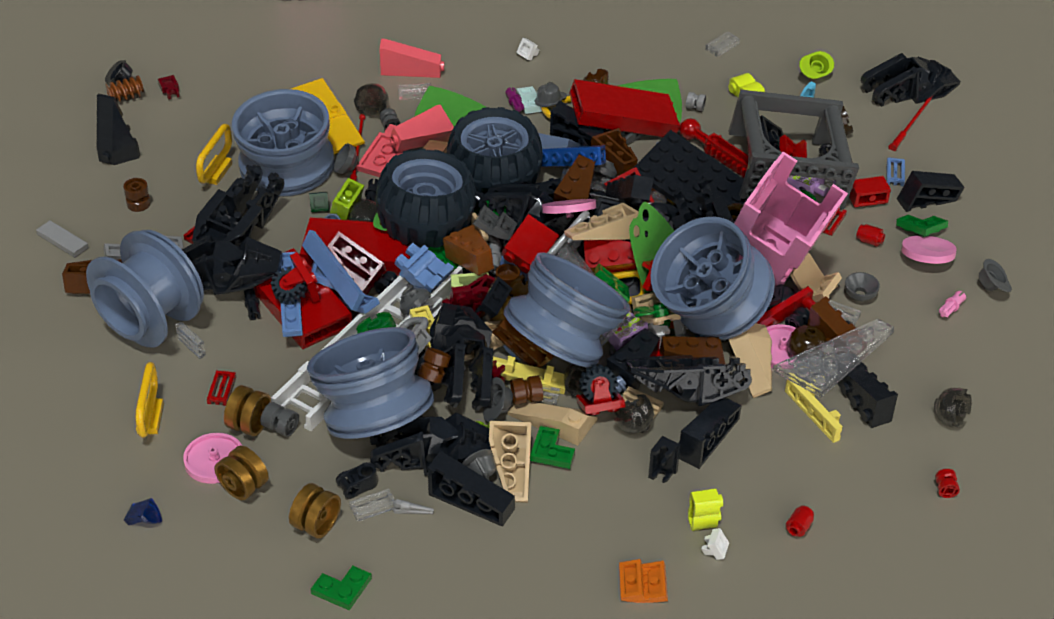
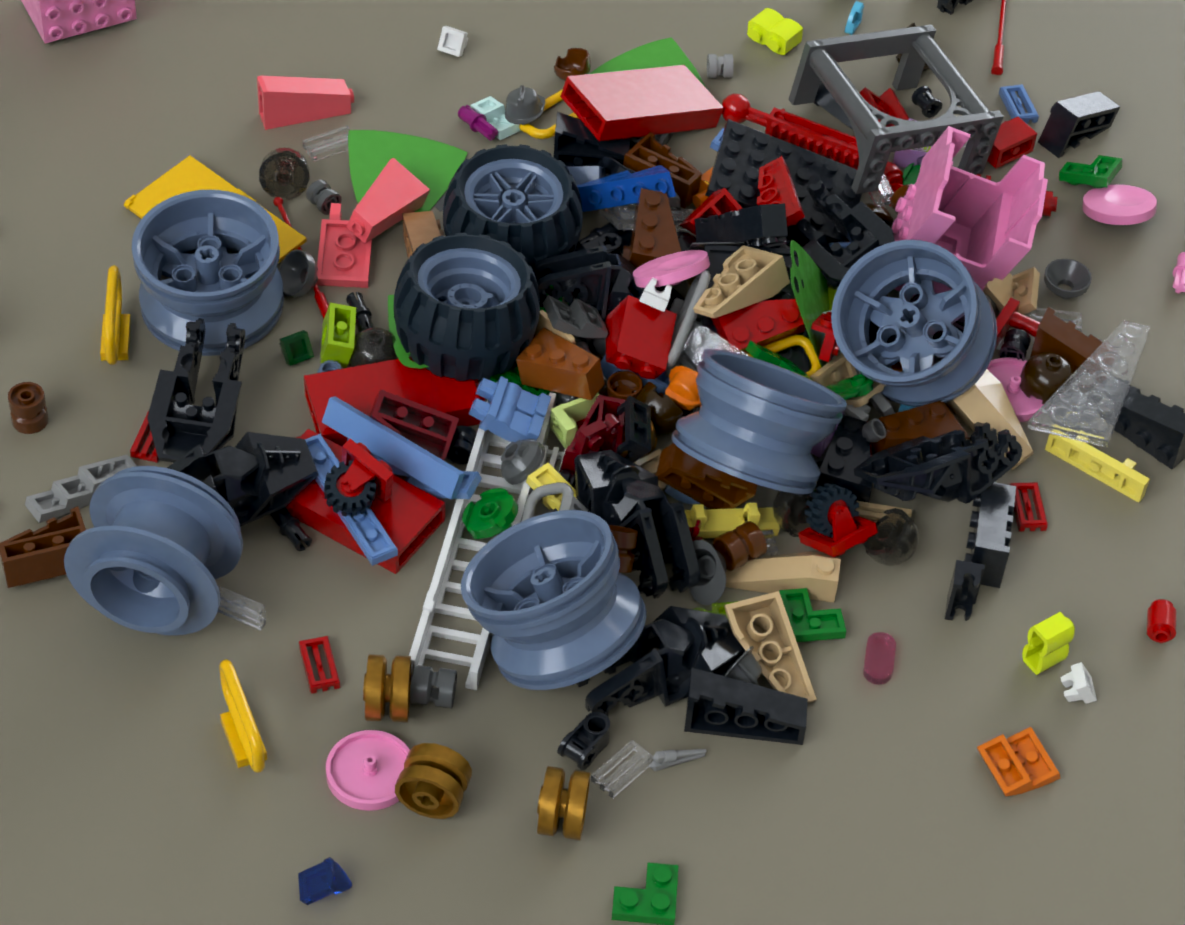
camera: 25 degrees left, 5 degrees up
(545, 220) = (656, 298): none -> white tile
(586, 488) = (879, 658): none -> clear pink tile
(652, 342) = (874, 430): none -> flat silver hinge
(672, 185) = (778, 188): none -> red wing
(745, 434) = (1019, 515): none -> red tile

